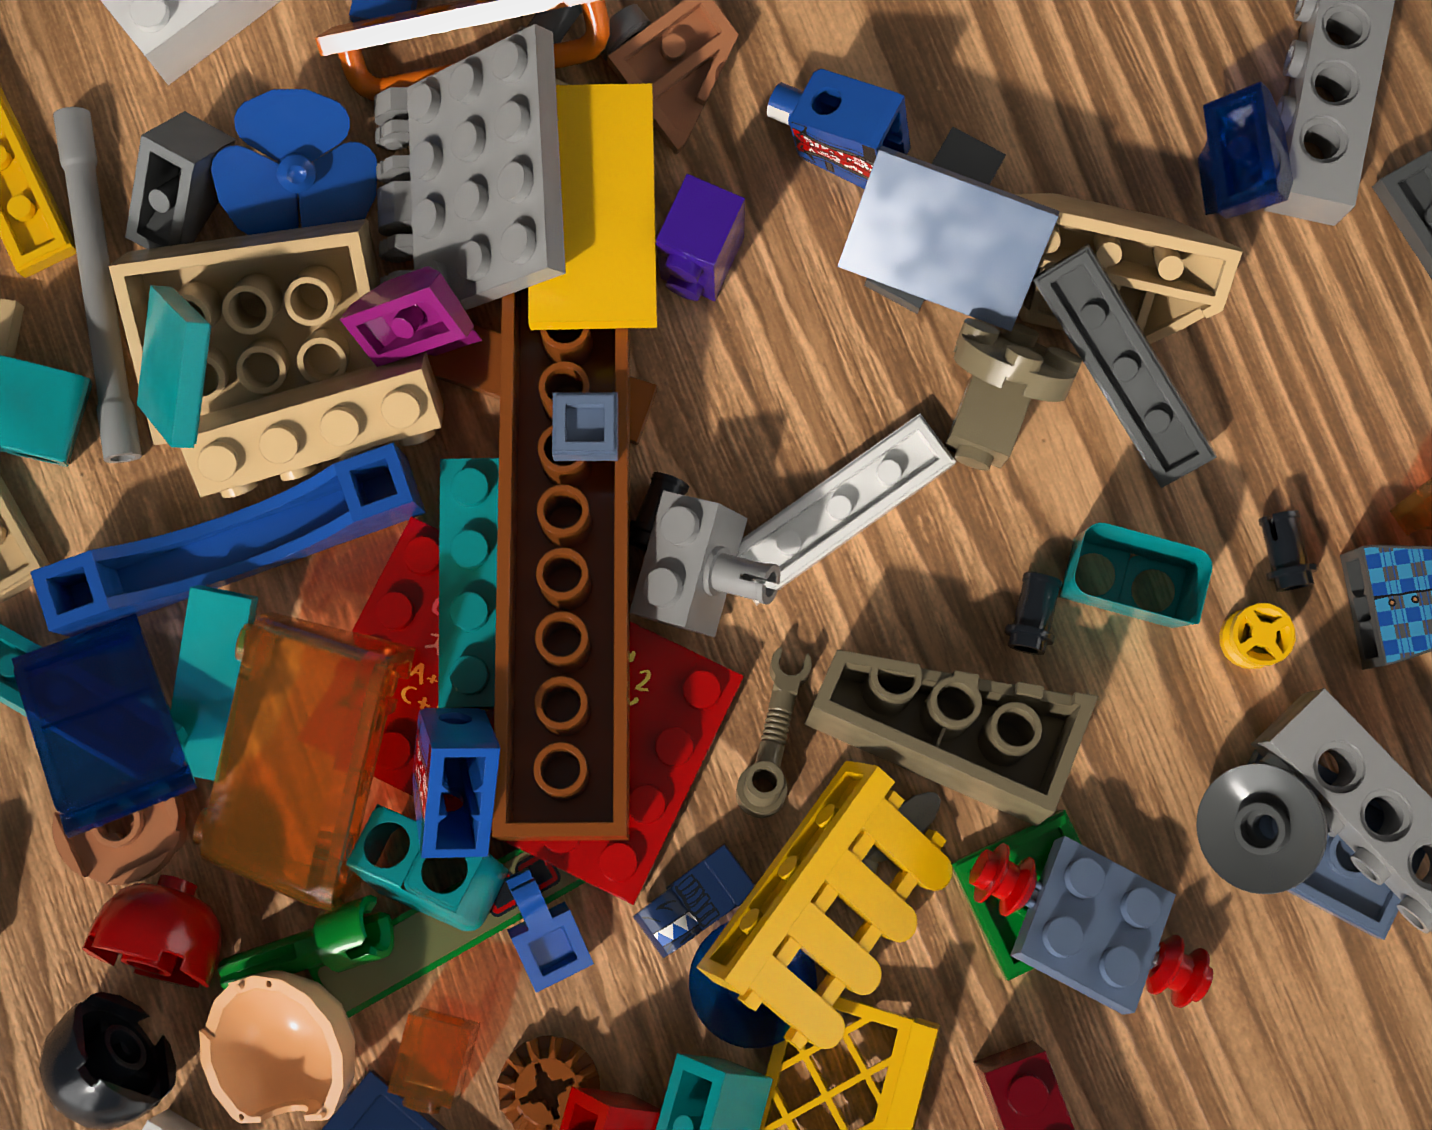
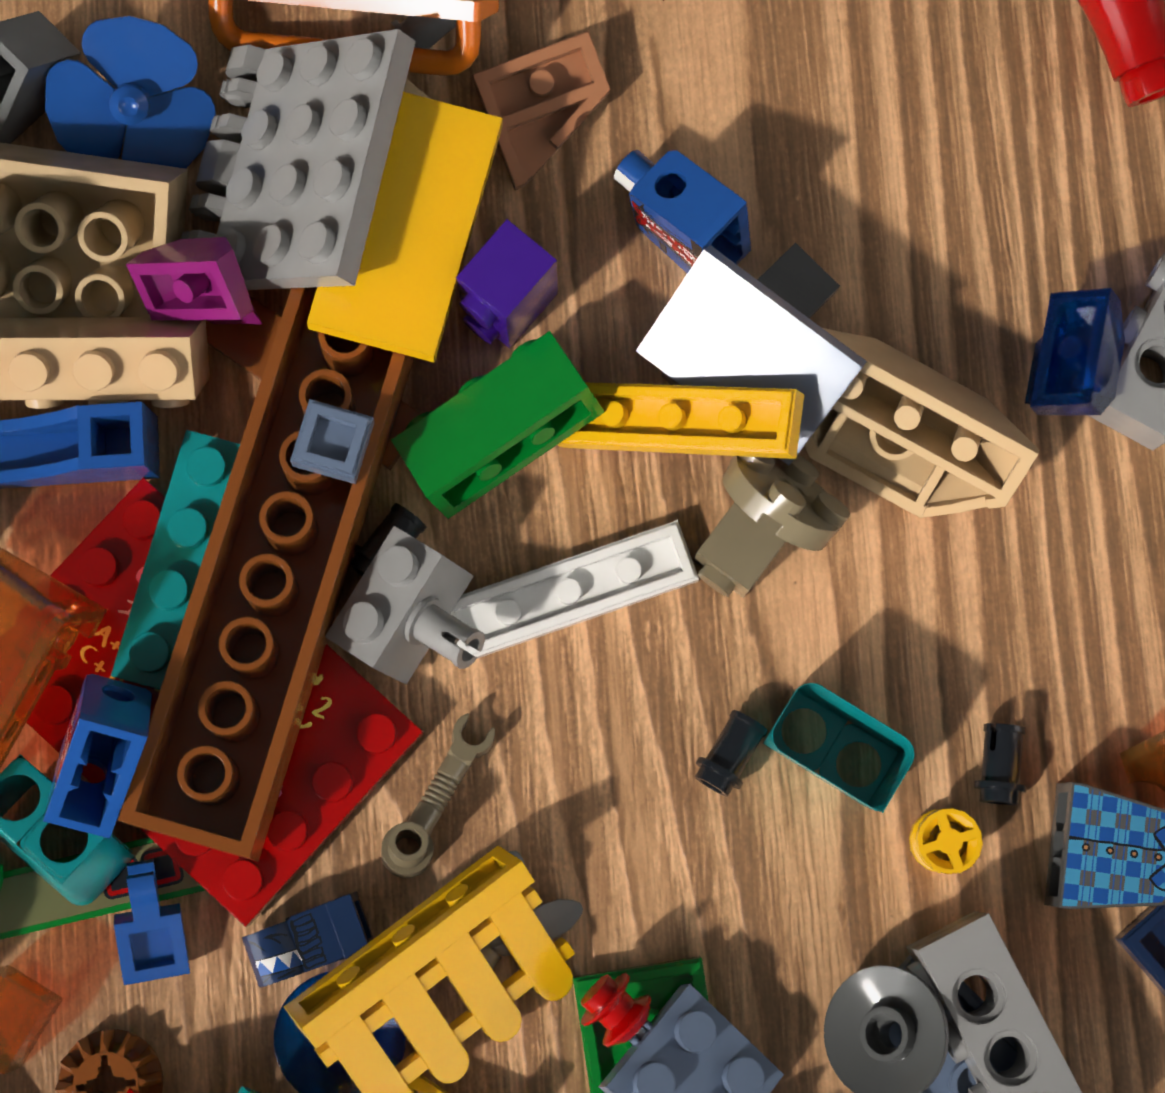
camera: 10 degrees right, 0 degrees up
(624, 26) = (497, 50): flat silver tile -> none
(730, 370) = (496, 425): none -> green brick
(898, 316) = (693, 420): none -> yellow tile
(961, 731) = (625, 854): dark tan wedge -> none
(1124, 366) = (892, 533): dark grey tile -> none

